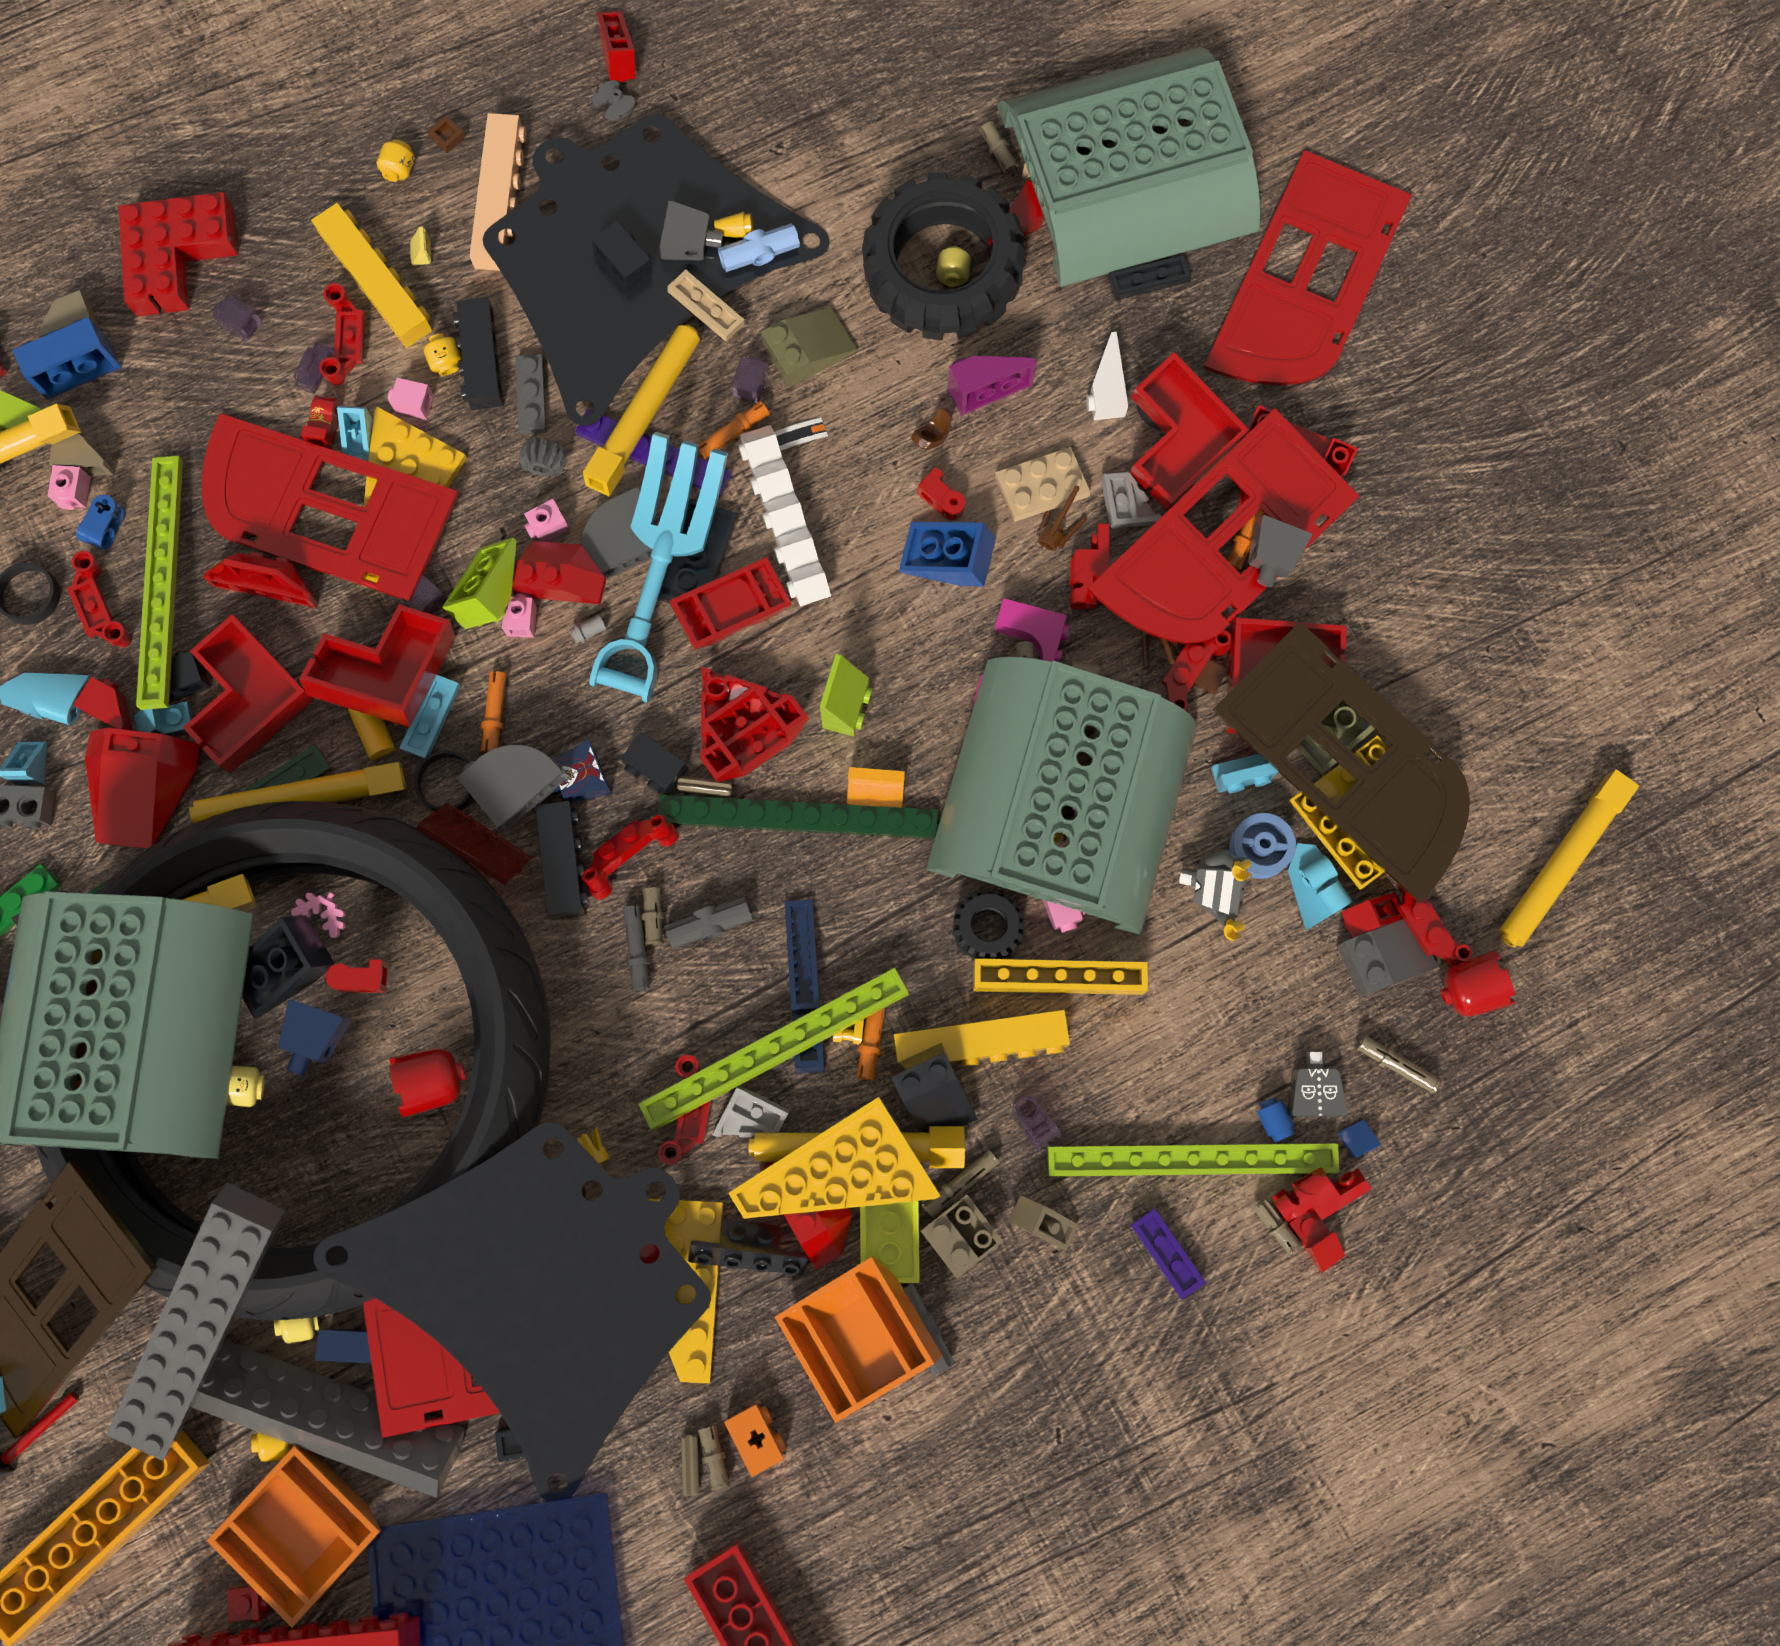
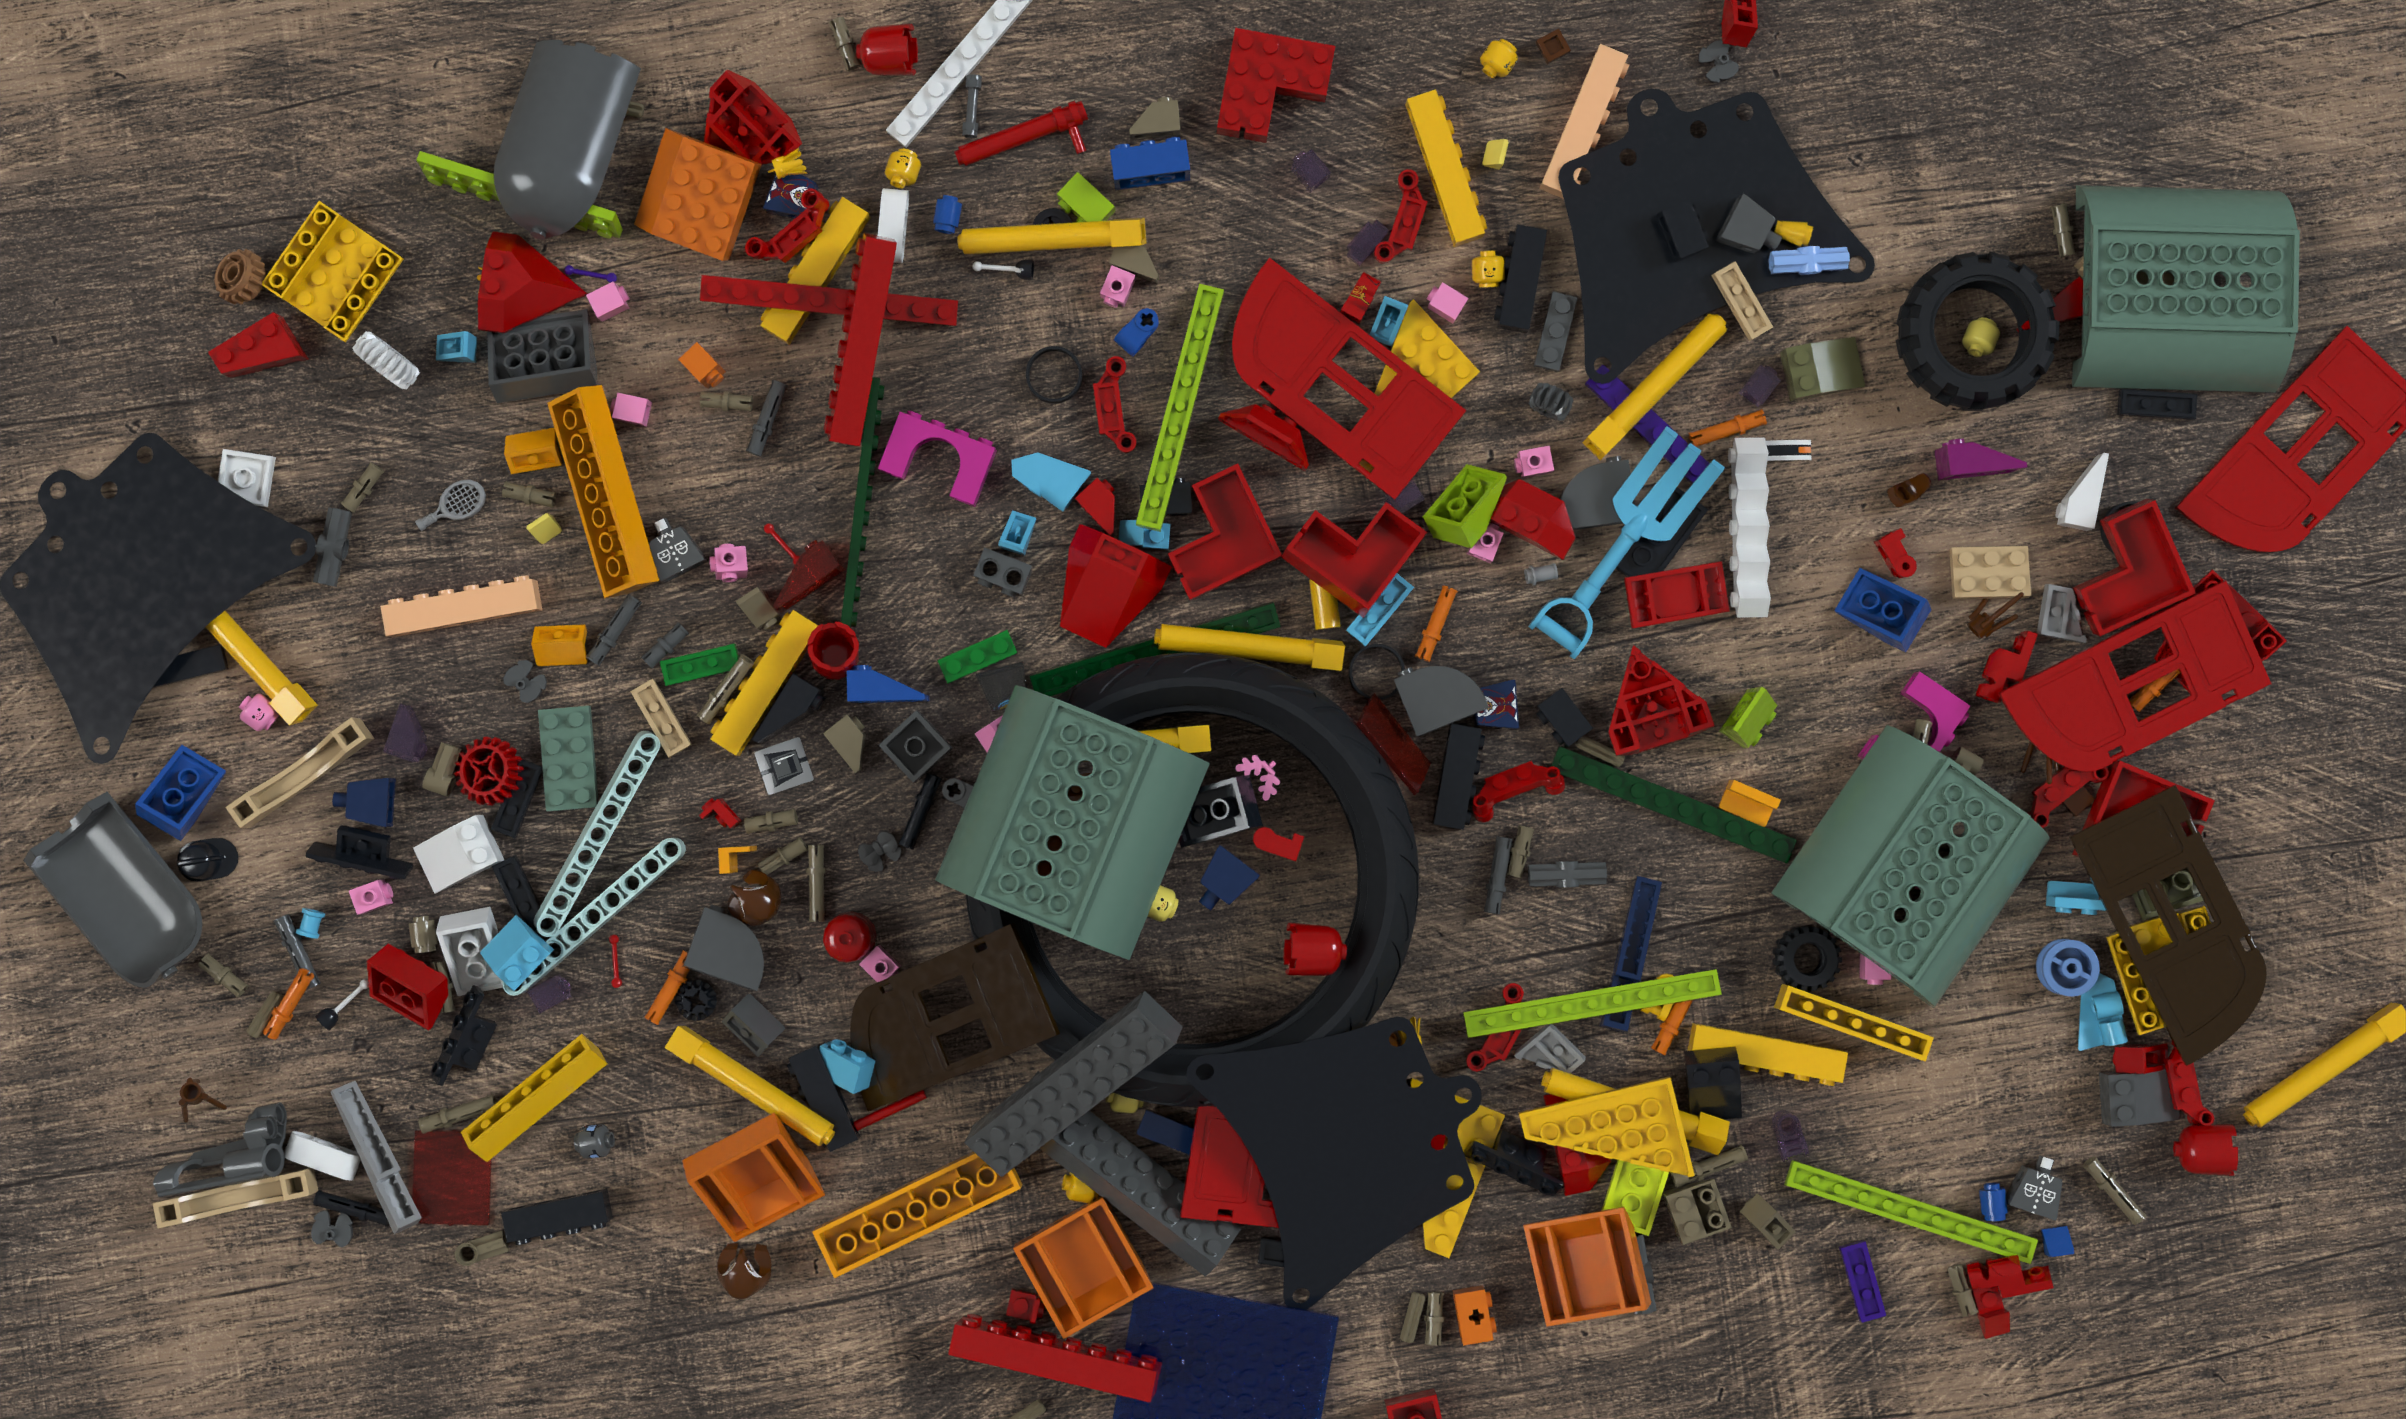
camera: 15 degrees right, 10 degrees up
(1220, 888) = (2019, 992): torso -> none
(1276, 548) = (2178, 712): dark grey torso -> none

